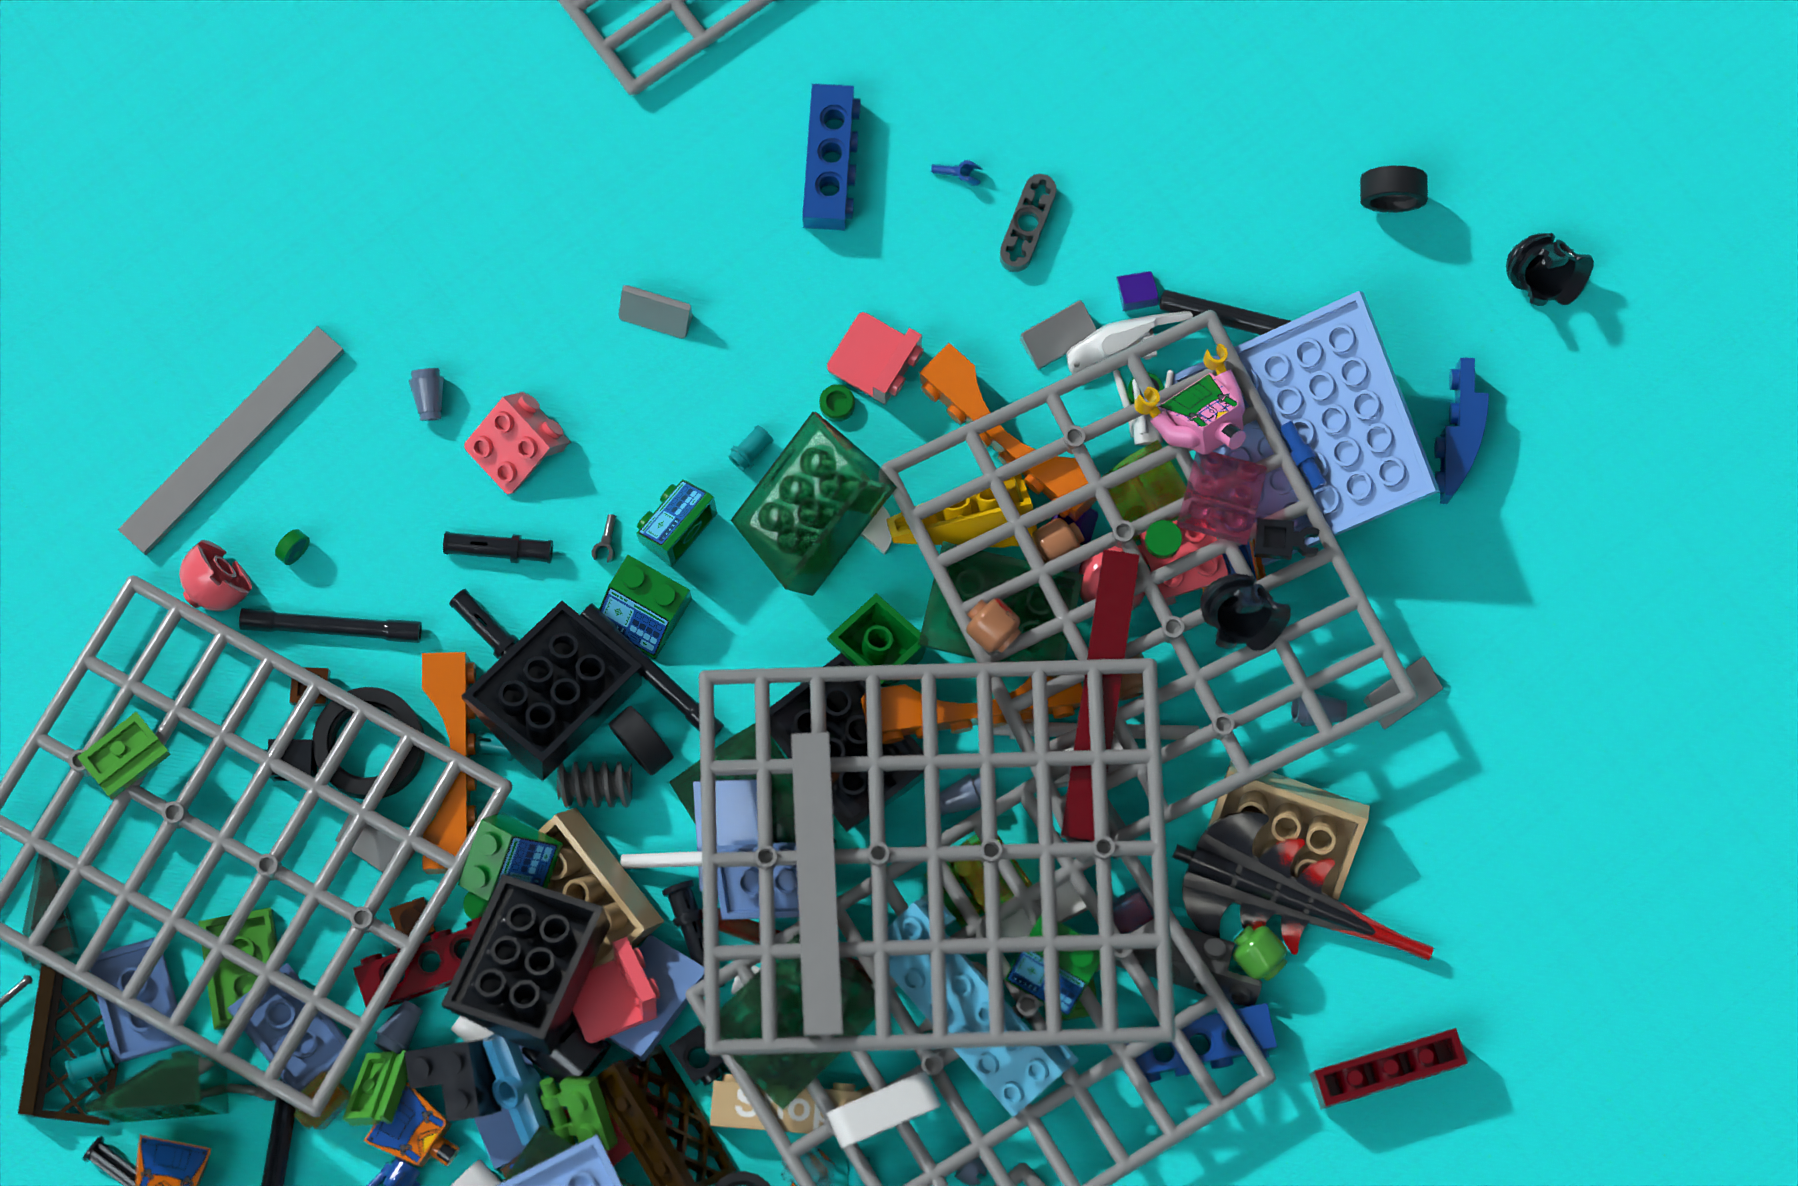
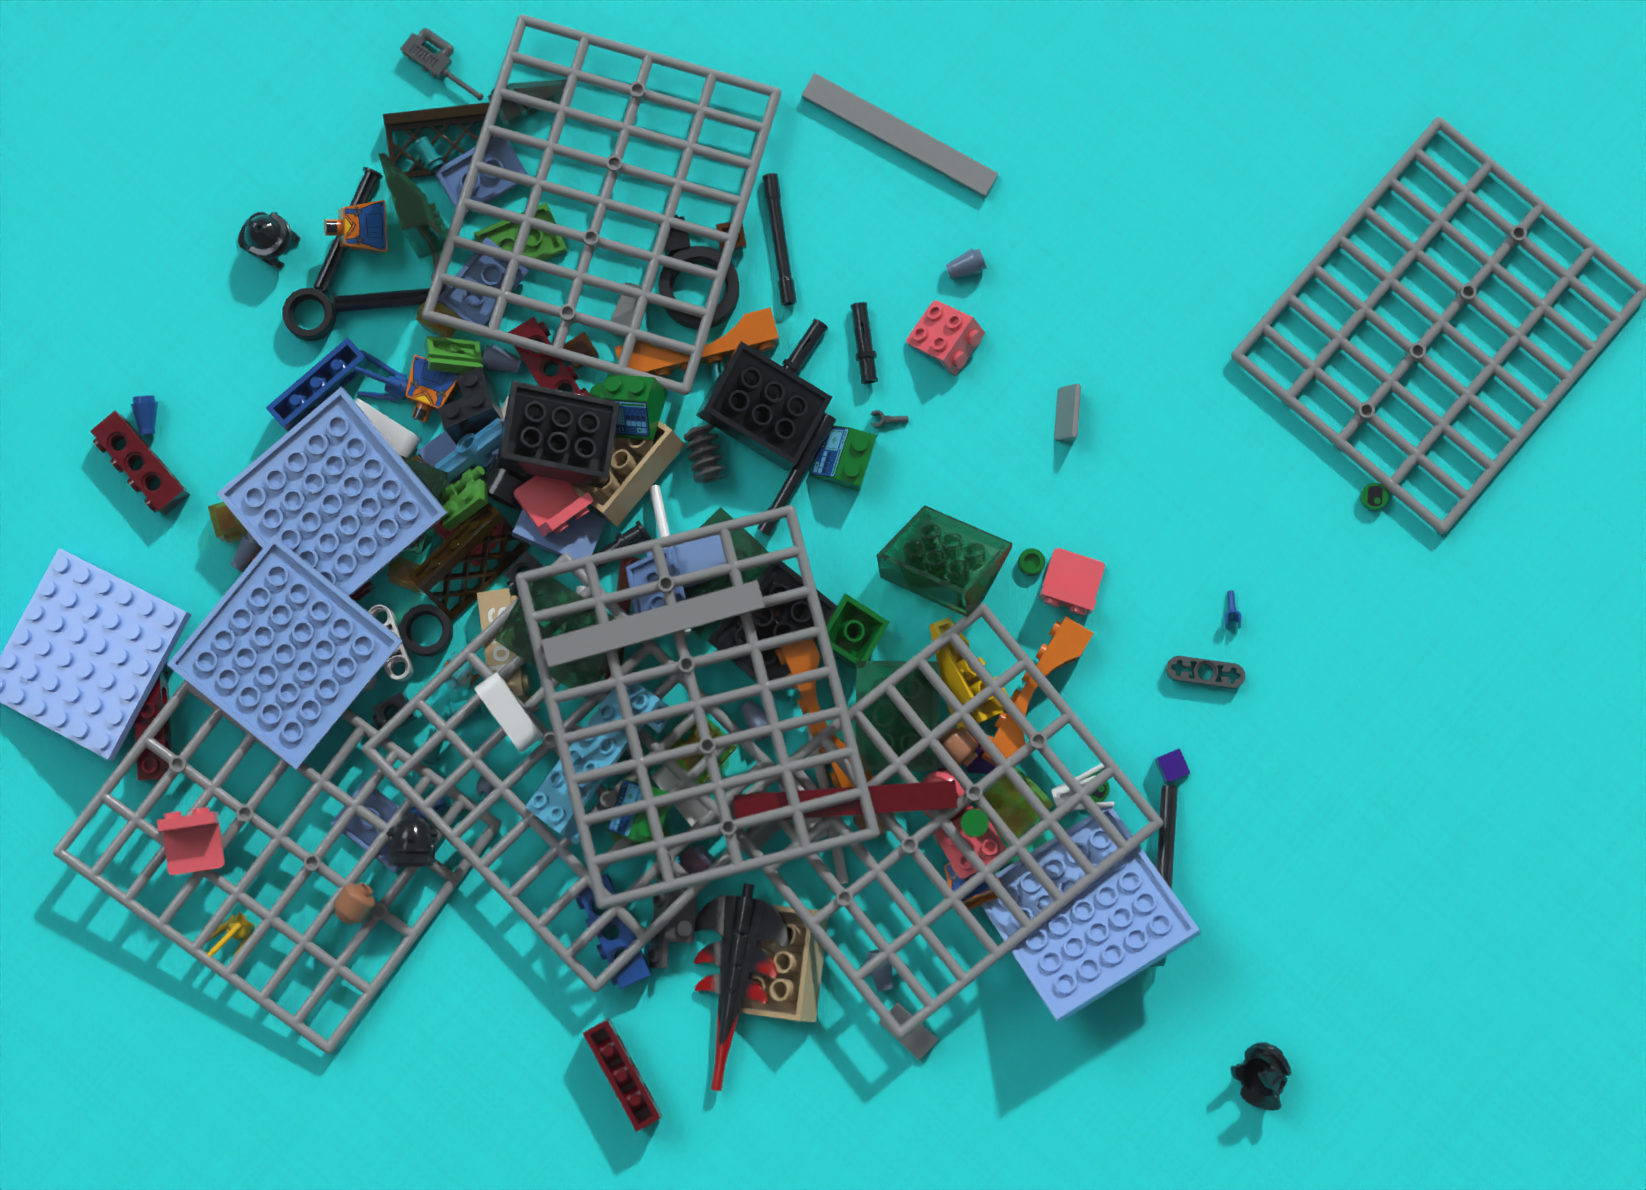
camera: 75 degrees right, 5 degrees up
(123, 755) = (646, 117): bright green plate -> none
(211, 580) = (792, 146): coral cylinder -> none
(292, 546) = (829, 197): green tile -> none
(640, 740) = (742, 478): black tyre -> none
(677, 521) = (911, 465): slope -> none
(750, 448) = (981, 506): teal pin -> none
(826, 104) = (1259, 500): blue brick -> none
(878, 532) = (939, 613): white tile -> none
(993, 625) = (878, 710): nougat head -> none
(1057, 334) = (1122, 714): light grey slope -> none
(1118, 337) = (1128, 759): white animal -> none
(1202, 413) = (1076, 831): torso -> none
(1222, 497) = (1017, 859): clear pink bracket -> none
(1243, 612) = (928, 893): black helmet -> none
(1260, 952) = (687, 962): bright green head -> none
(1278, 539) = (994, 908): black plate -> none
(1303, 455) = (1065, 915): blue bar -> none
(1393, 189) = (1297, 943): black tyre -> none
(1461, 442) = (1108, 1035): blue slope -> none

